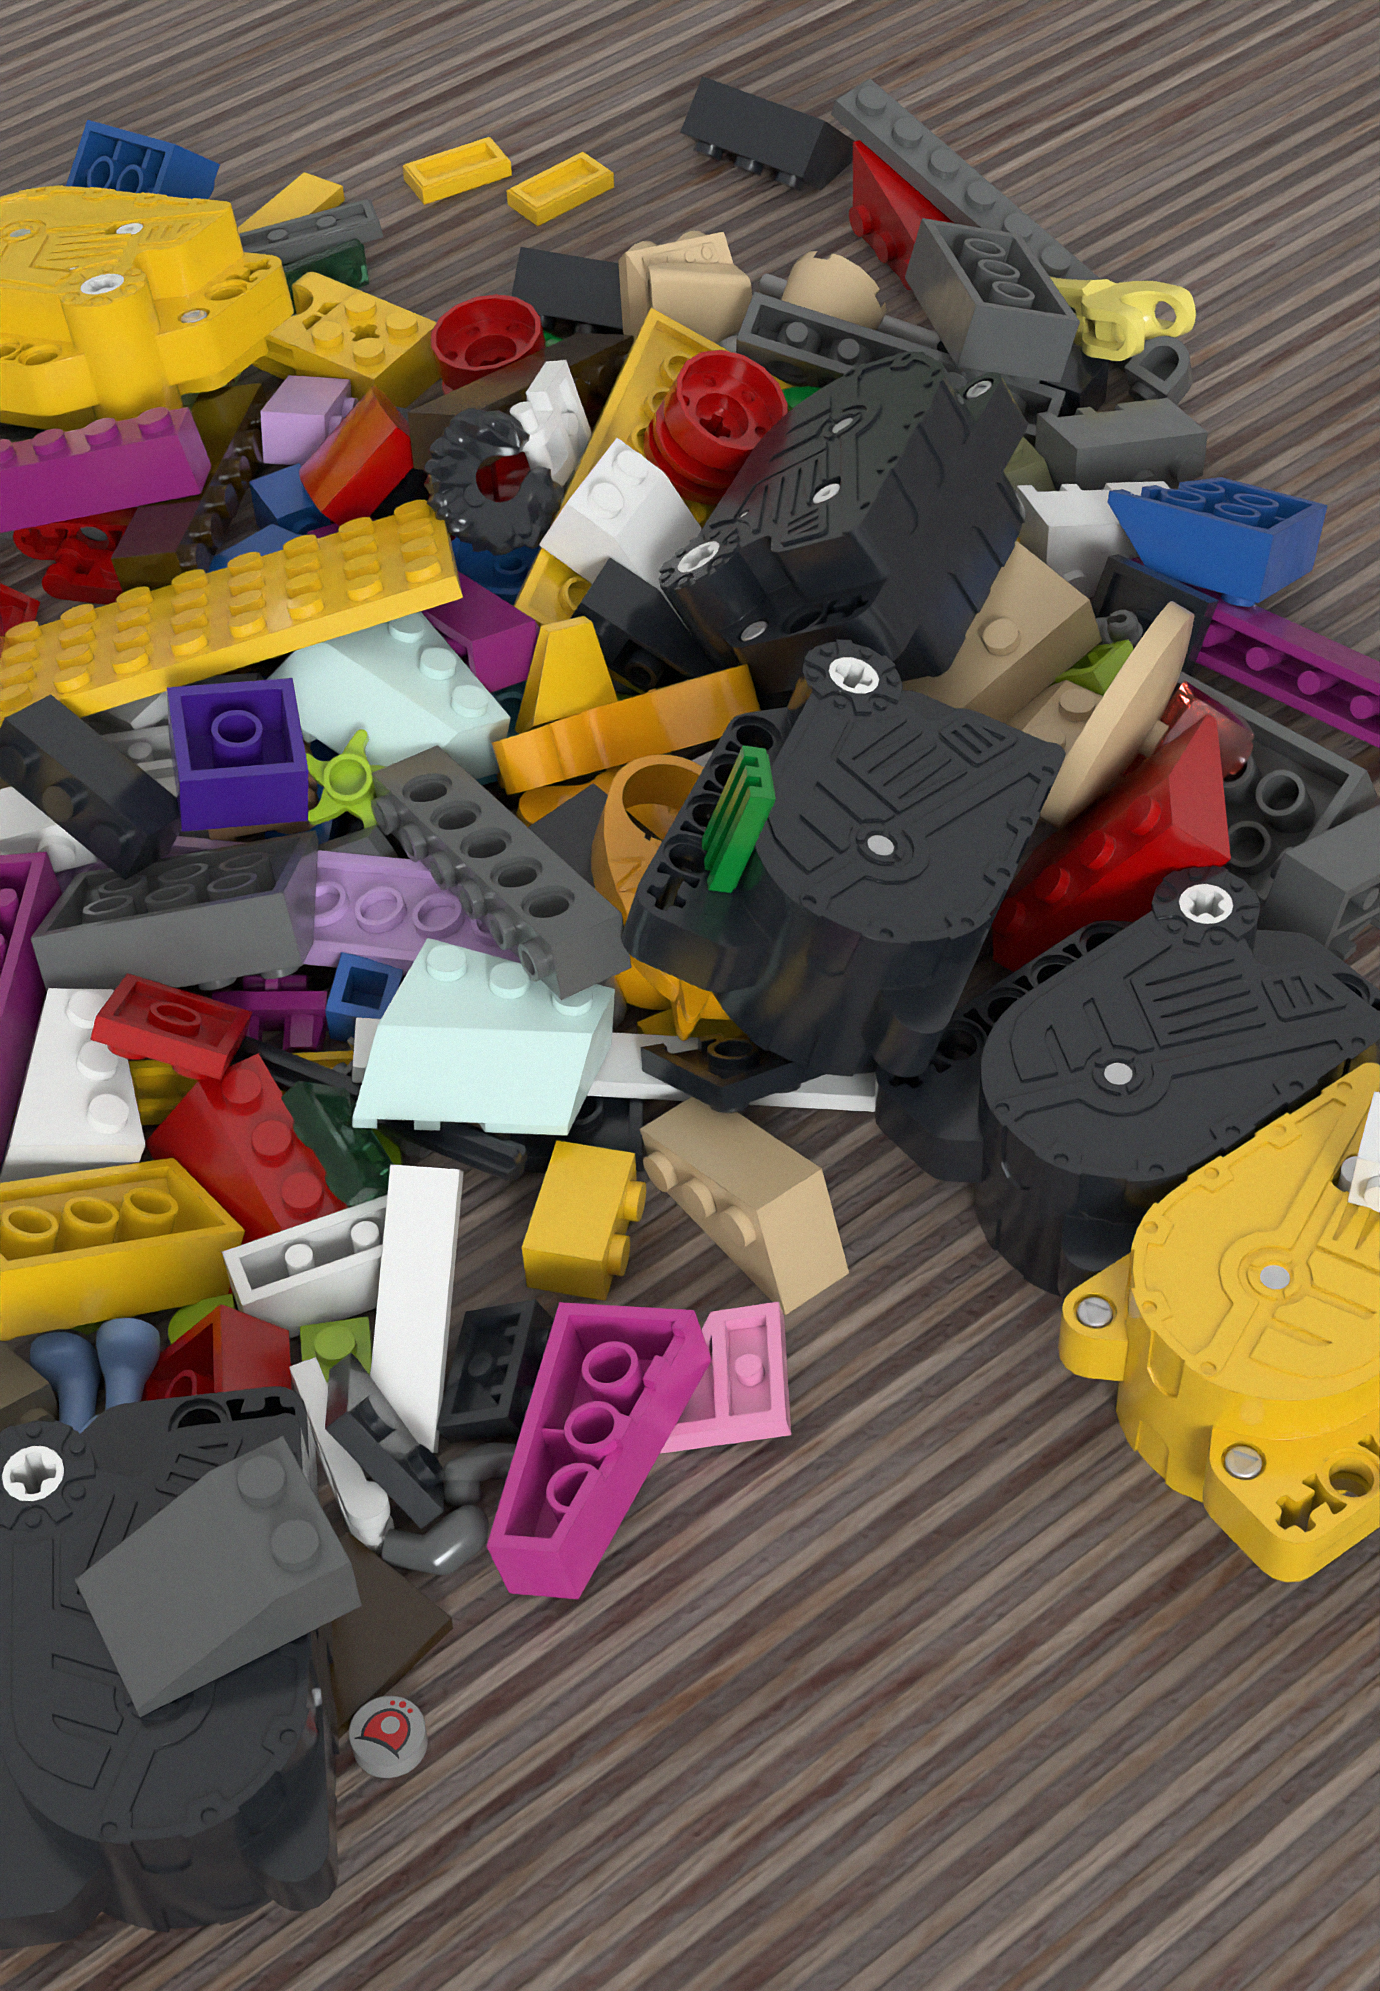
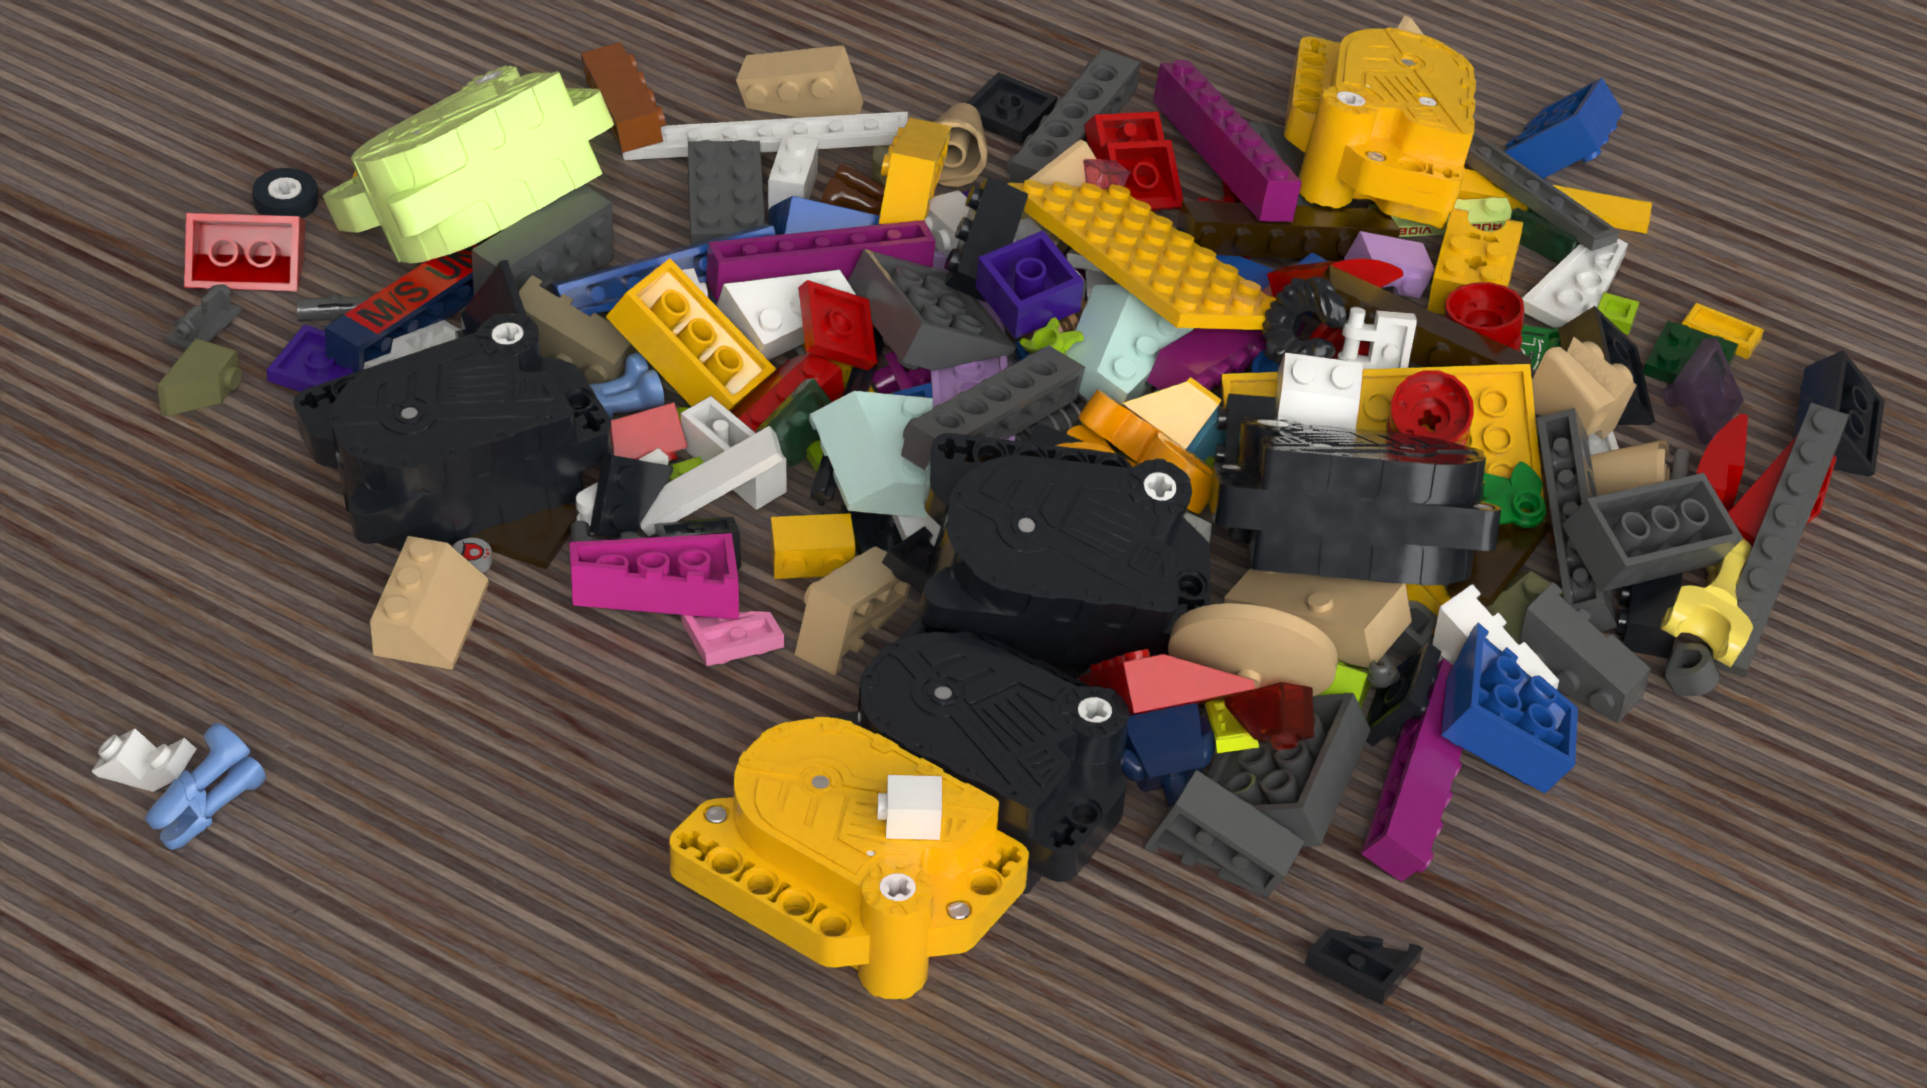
camera: 65 degrees right, 5 degrees down
(219, 1578) = (471, 410): dark grey slope -> none
(422, 275) = (1574, 284): none -> white wing
(457, 170) = (1708, 276): yellow tile -> none
(490, 259) = (1619, 311): none -> lime plate
(498, 1837) = (427, 605): none -> tan slope
(598, 223) = (1676, 347): none -> dark green plate
(690, 212) = (1706, 390): none -> clear purple tile
(738, 819) = (989, 442): green tile -> none
(864, 231) = (1725, 459): none -> red slope

